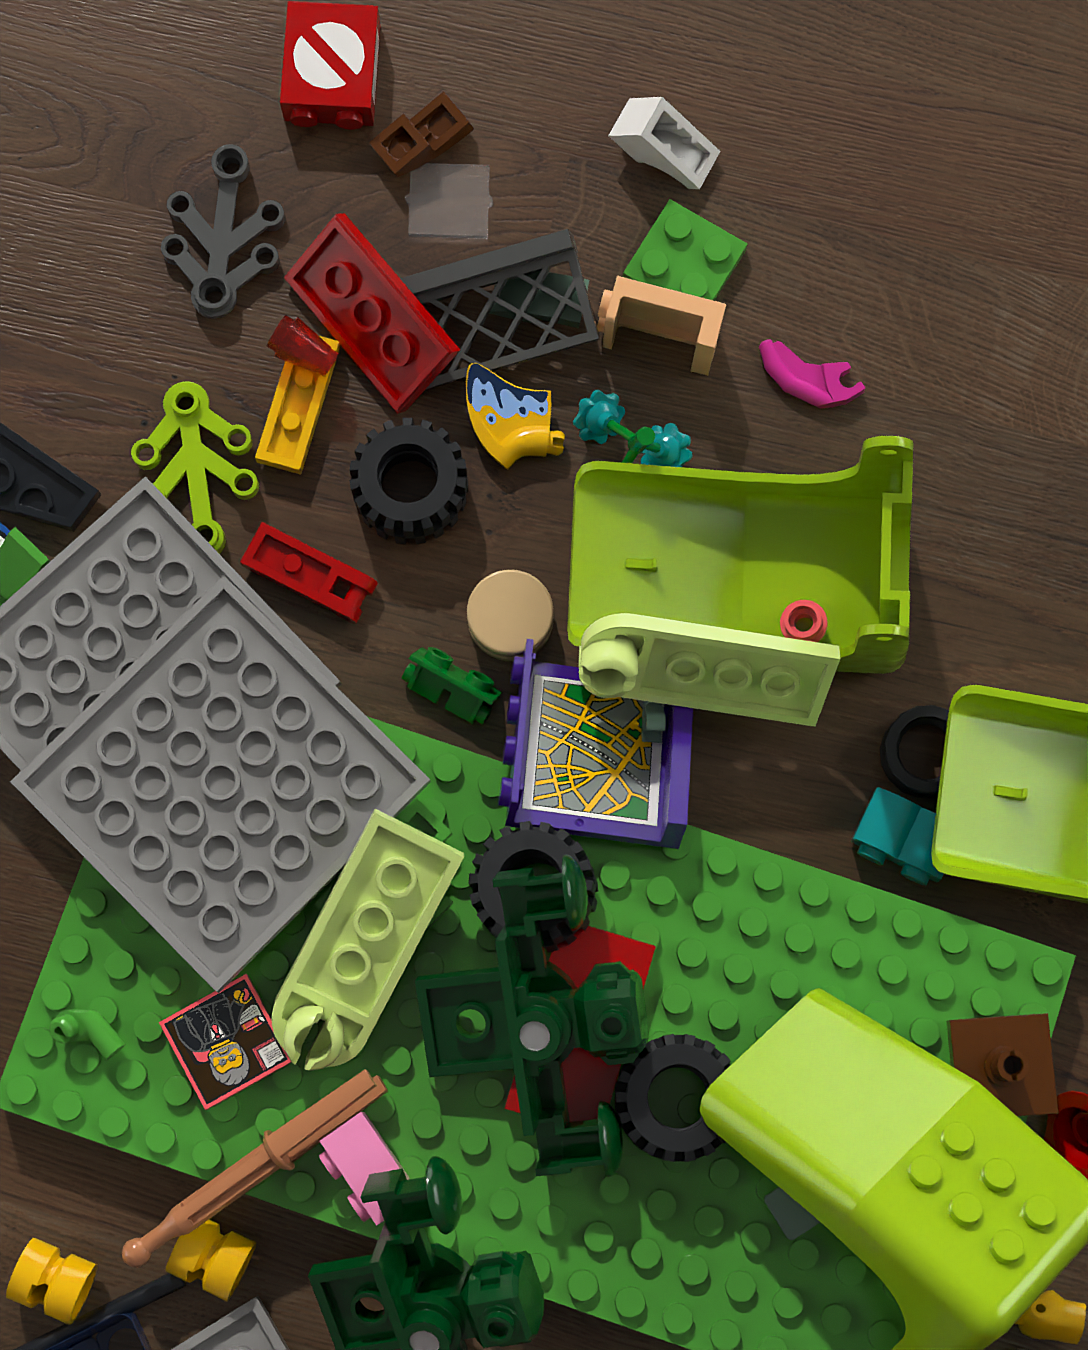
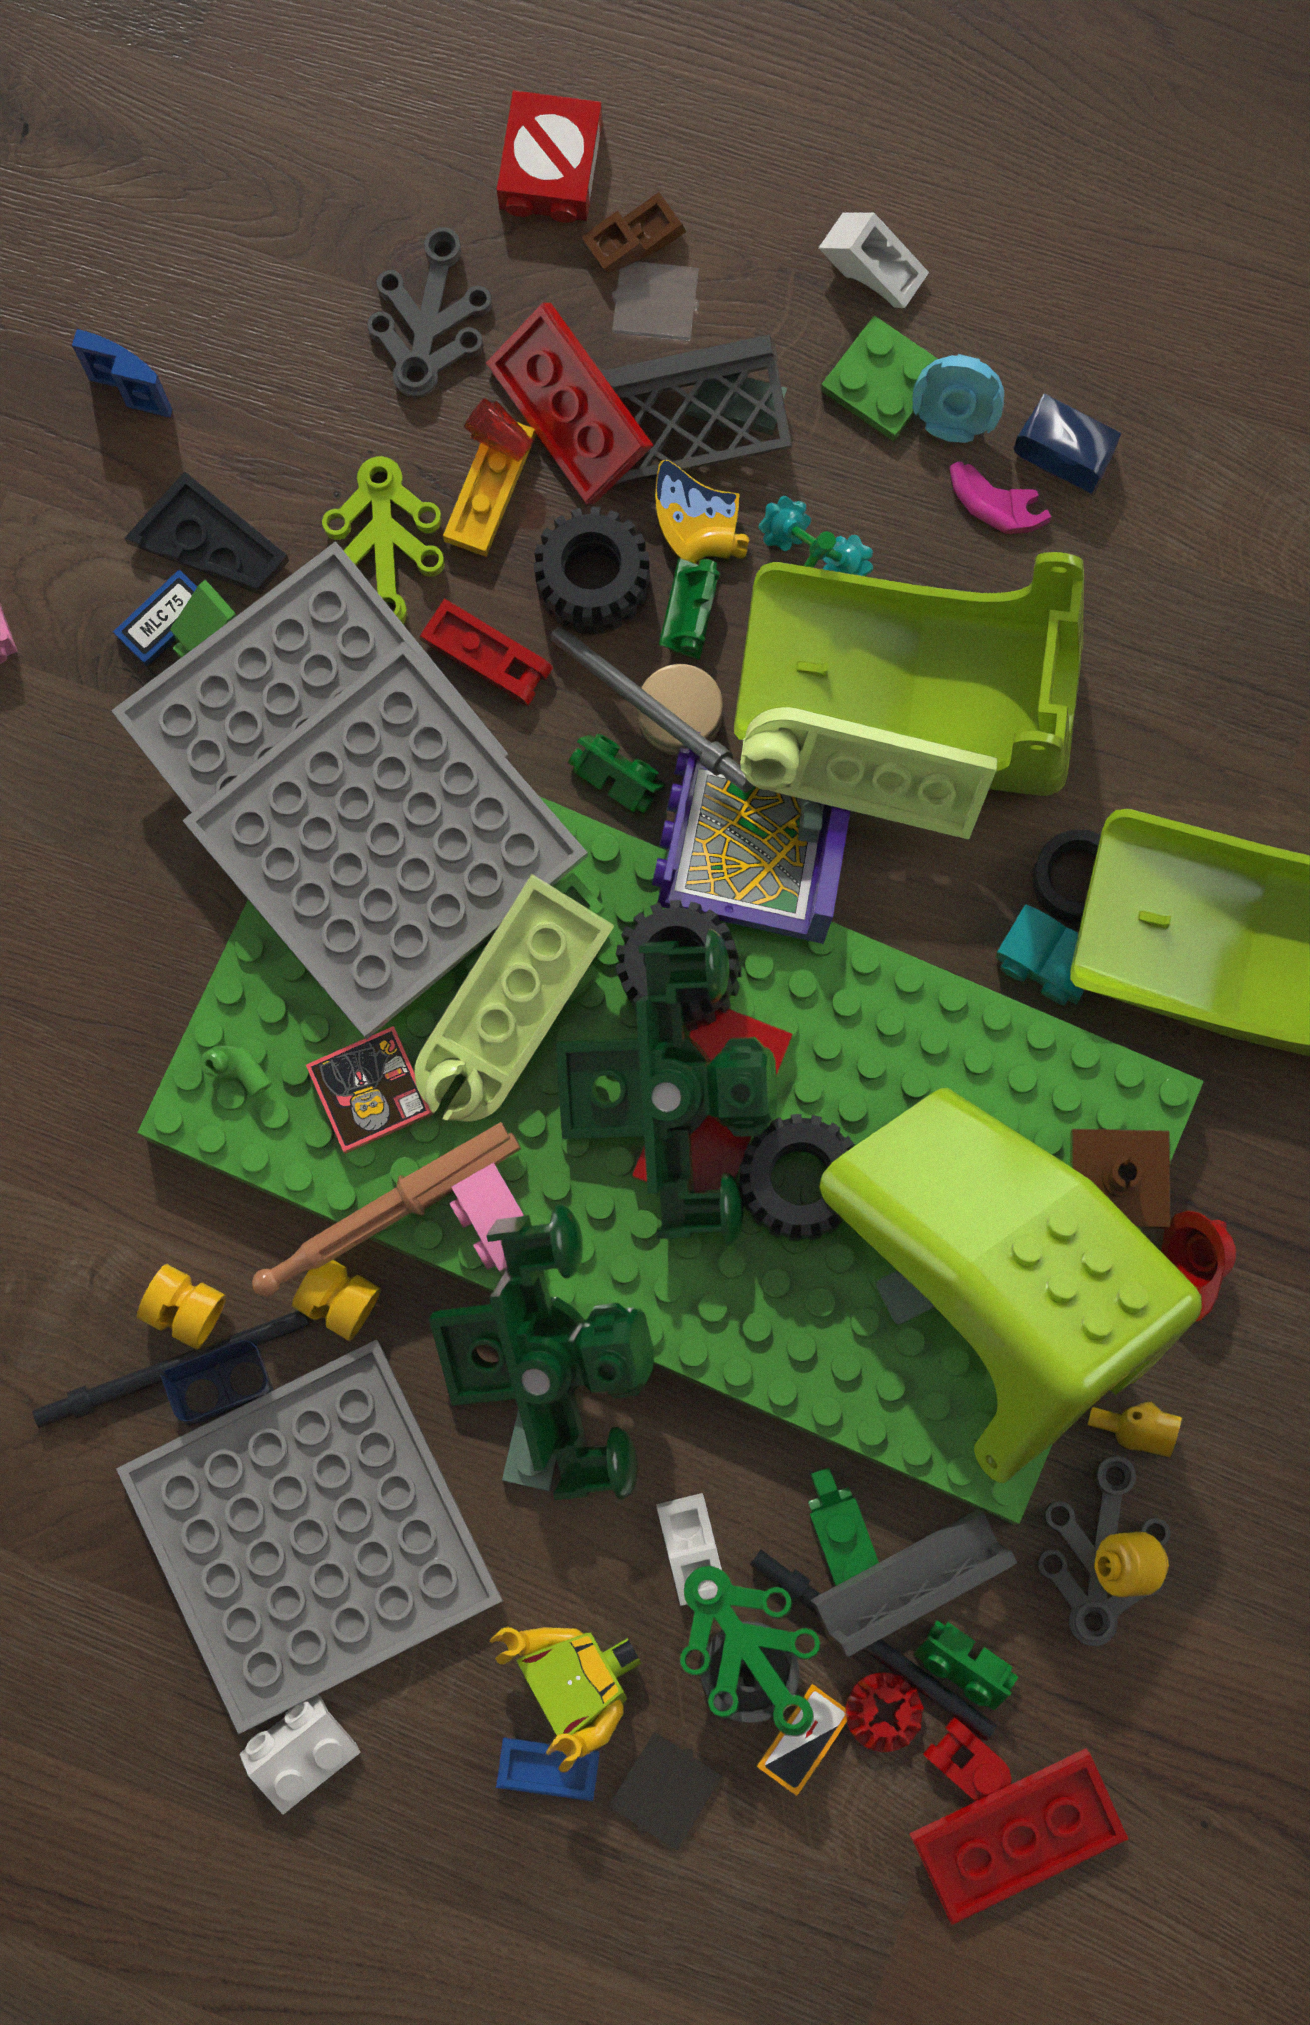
camera: 10 degrees right, 0 degrees up
(510, 510) = (689, 607): none -> green hinge
(548, 664) = (712, 755): none -> dark grey bar
(662, 314) = (855, 427): light nougat panel -> none
(762, 276) = (958, 398): none -> medium azure tile
(804, 609) = (969, 727): coral plate -> none
(875, 313) = (1067, 443): none -> dark blue piece

